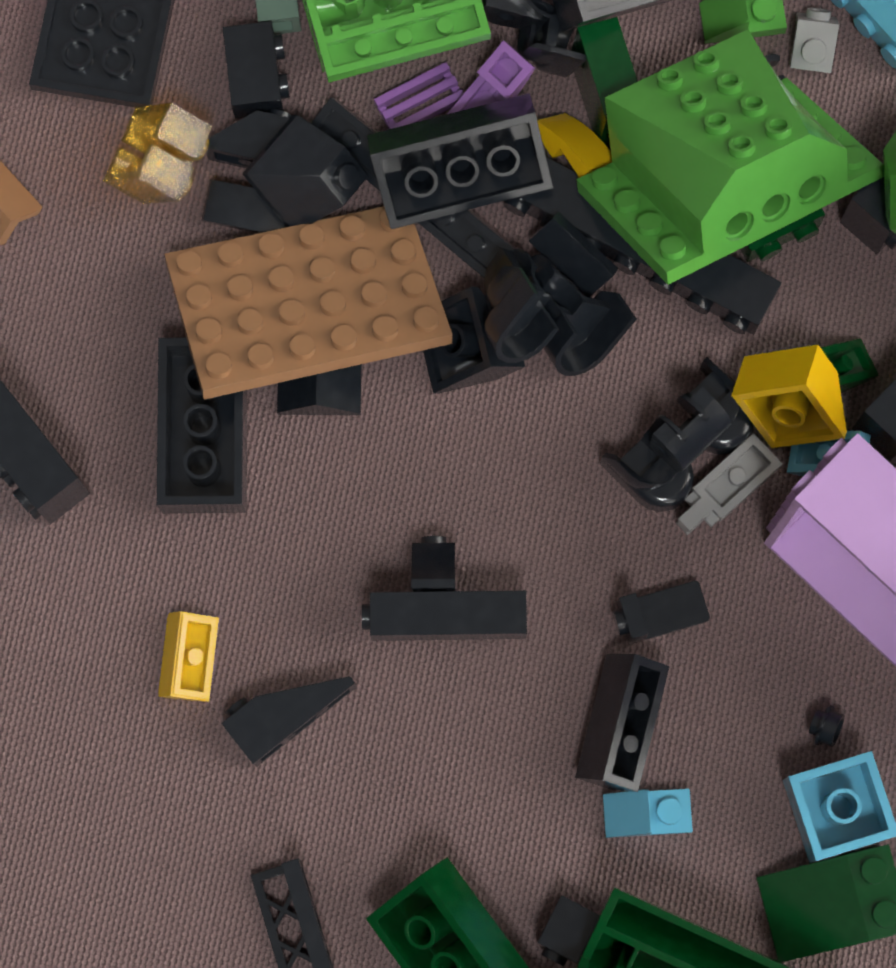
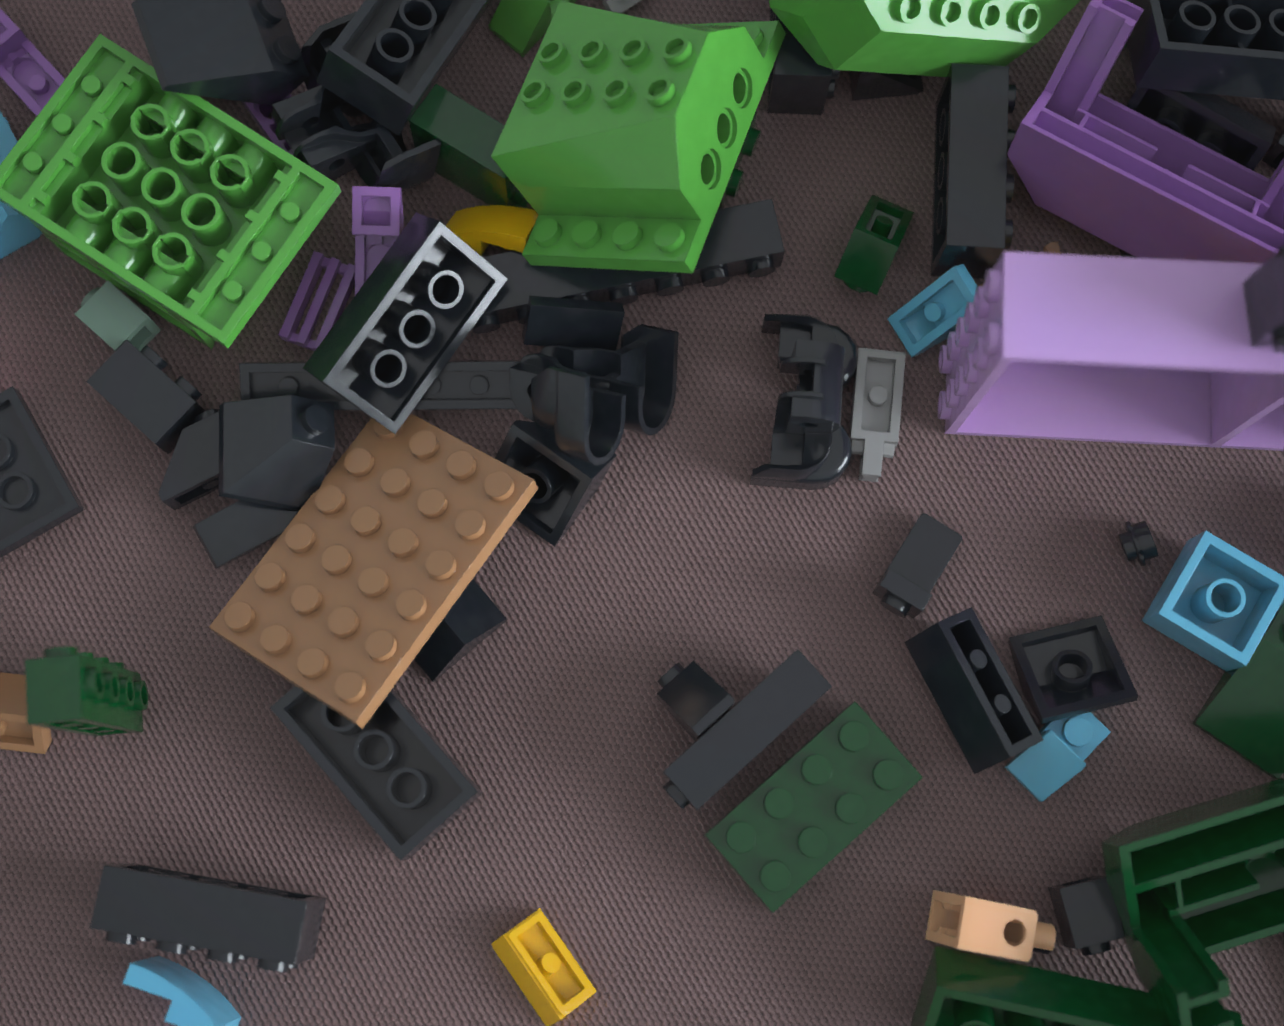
camera: 45 degrees left, 0 degrees up
(52, 230) = (83, 694): none -> dark green brick
(170, 145) = (129, 523): clear yellow piece -> none
(277, 717) = (671, 955): black slope -> none
(449, 704) = (812, 806): none -> dark green brick
(486, 866) = (988, 927): none -> light nougat torso
(703, 767) = (1071, 669): none -> black slope
(791, 396) = (869, 285): yellow slope -> none

